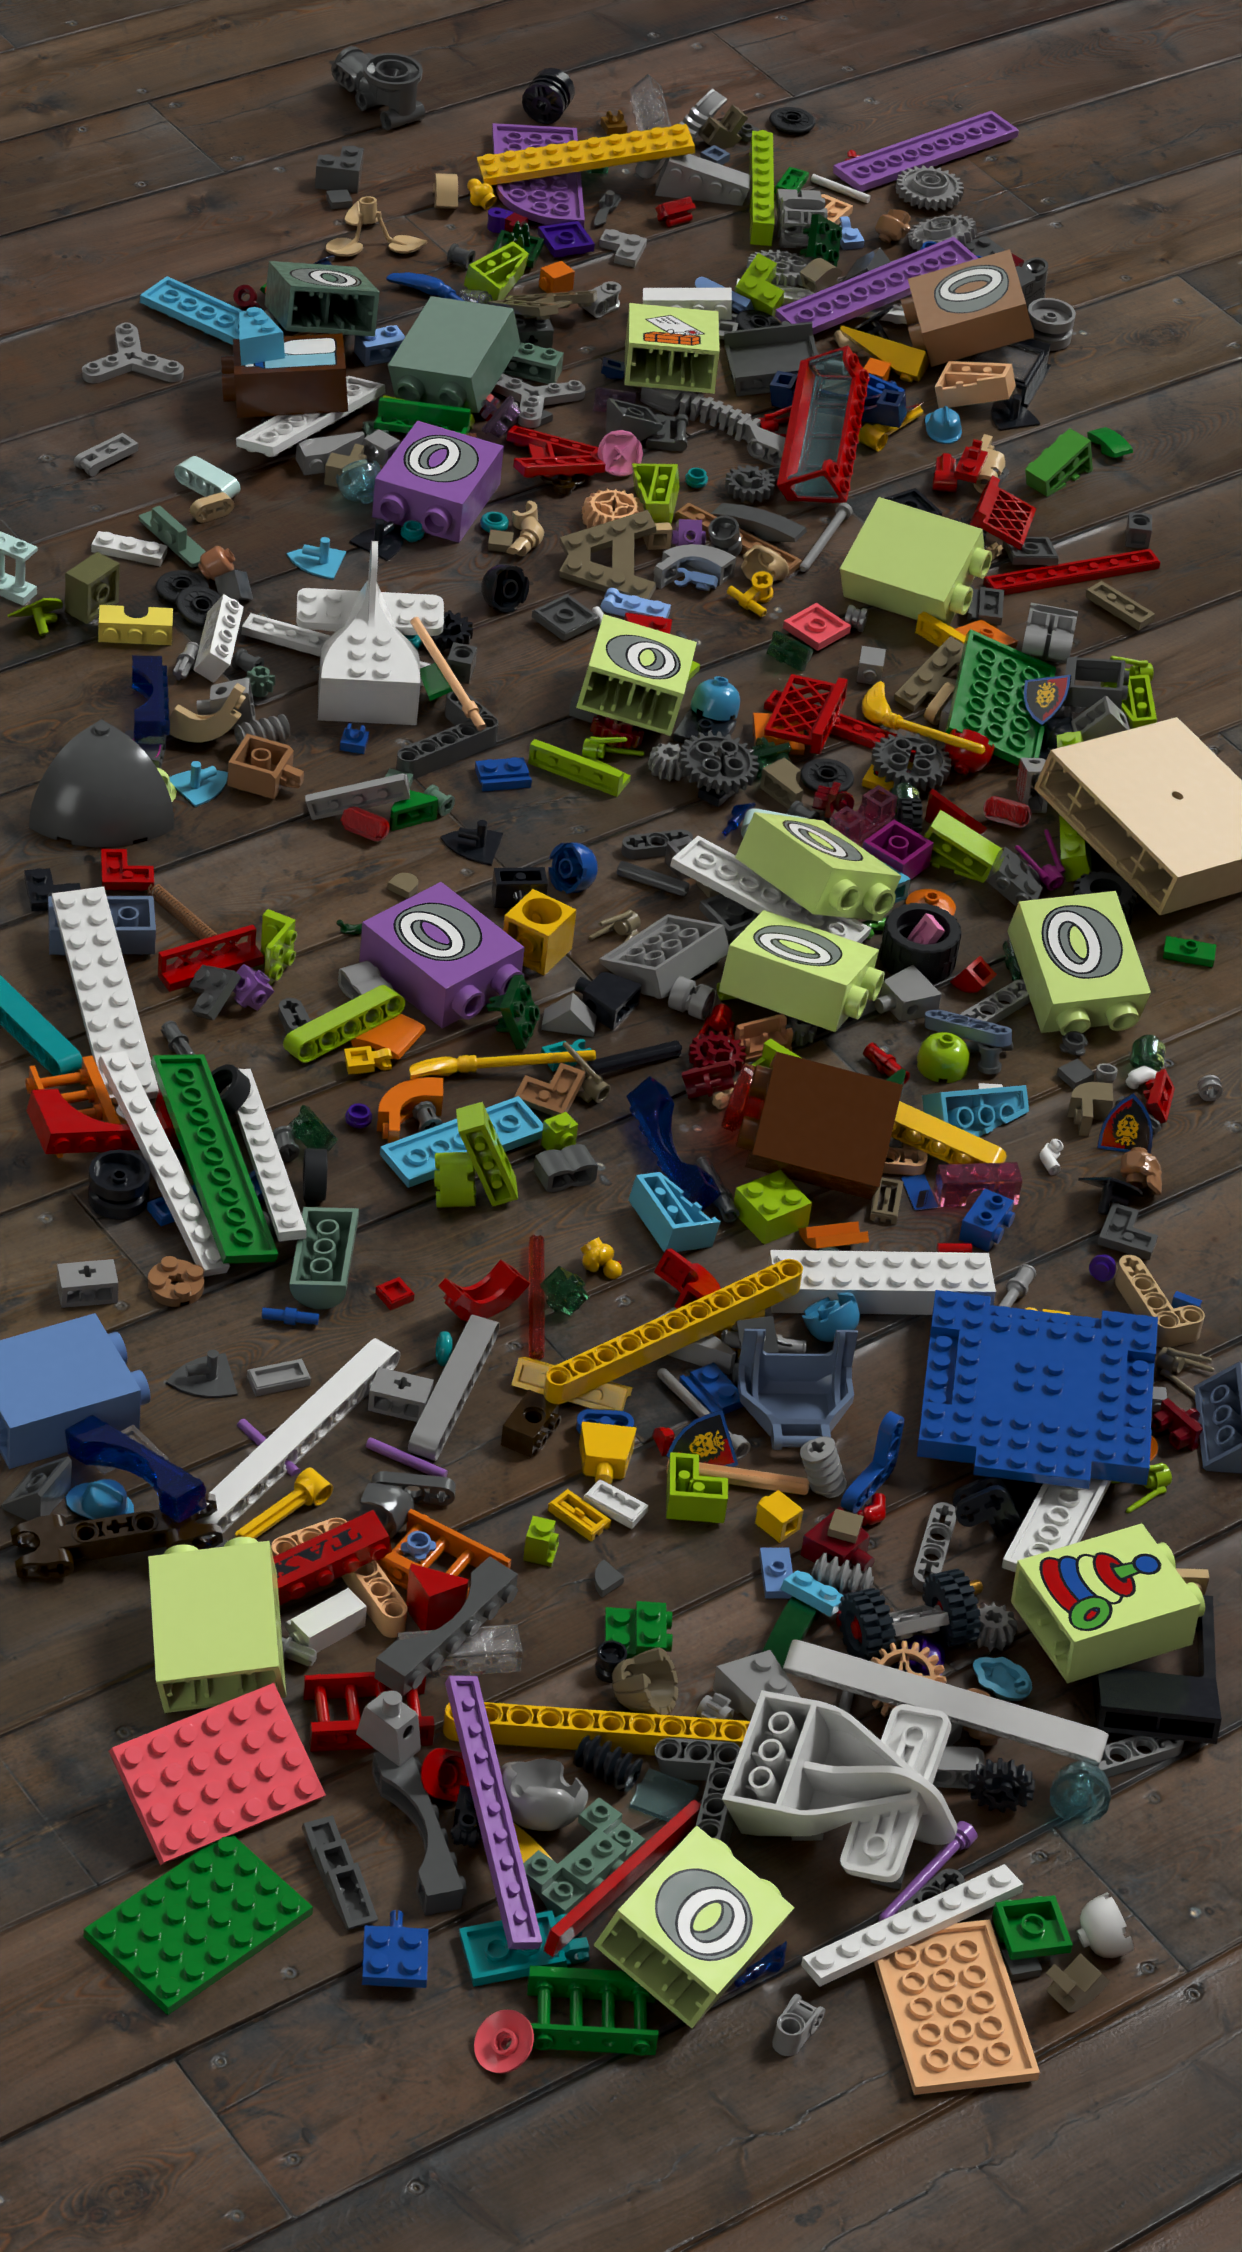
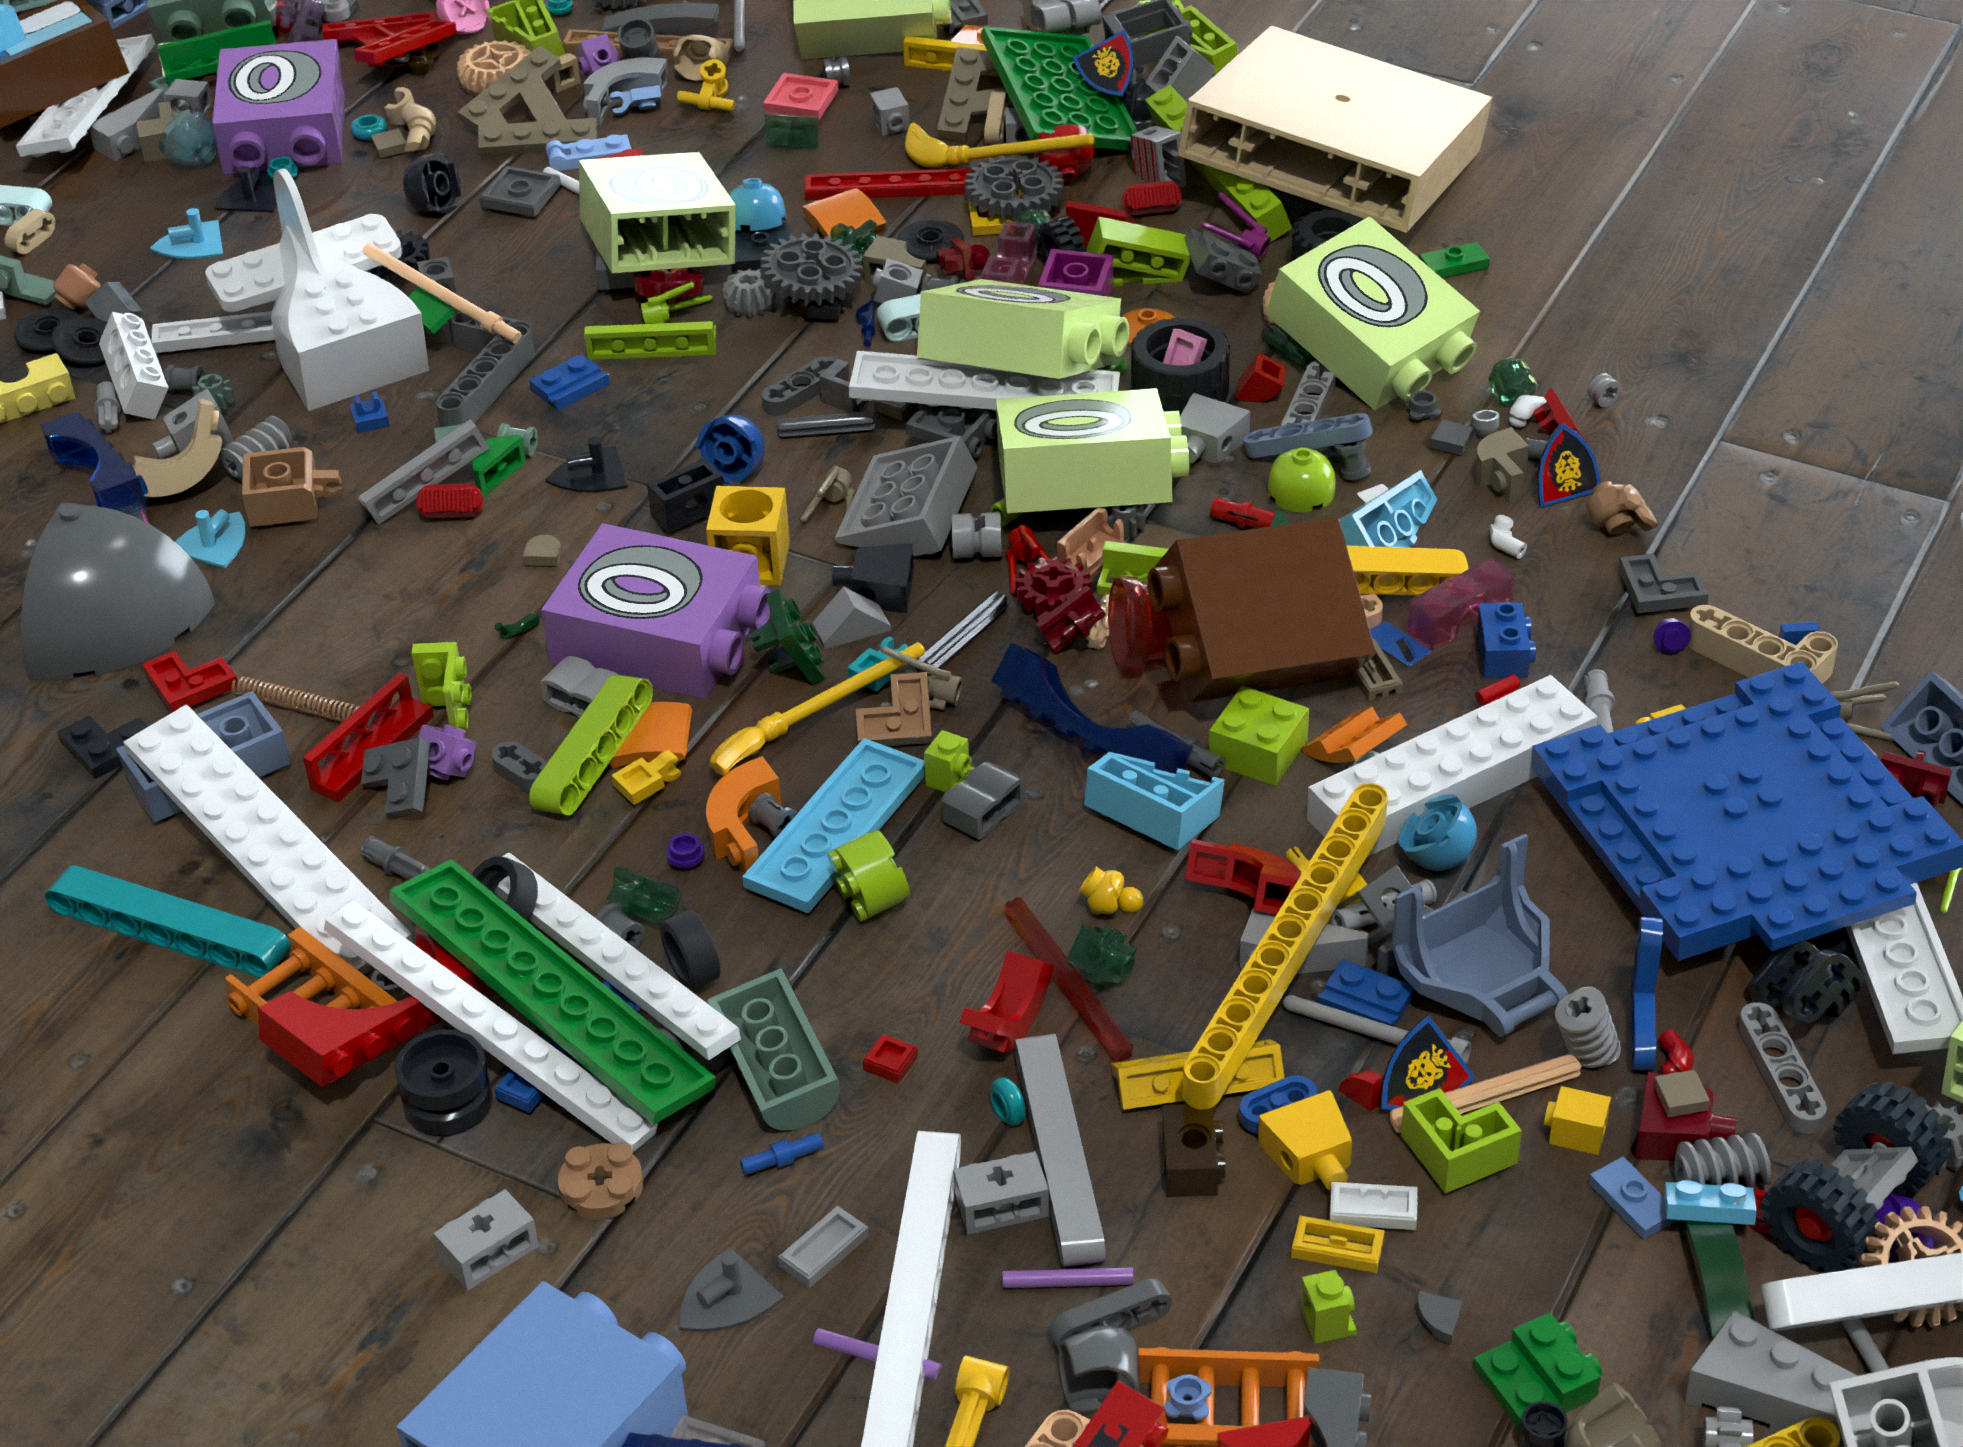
camera: 20 degrees left, 0 degrees up
(487, 1154) = (898, 822): lime brick -> none
(773, 797) = (895, 281): none -> light grey brick
(824, 715) = (883, 175): red fence -> none
(1108, 1196) = (1603, 542): black shield -> none

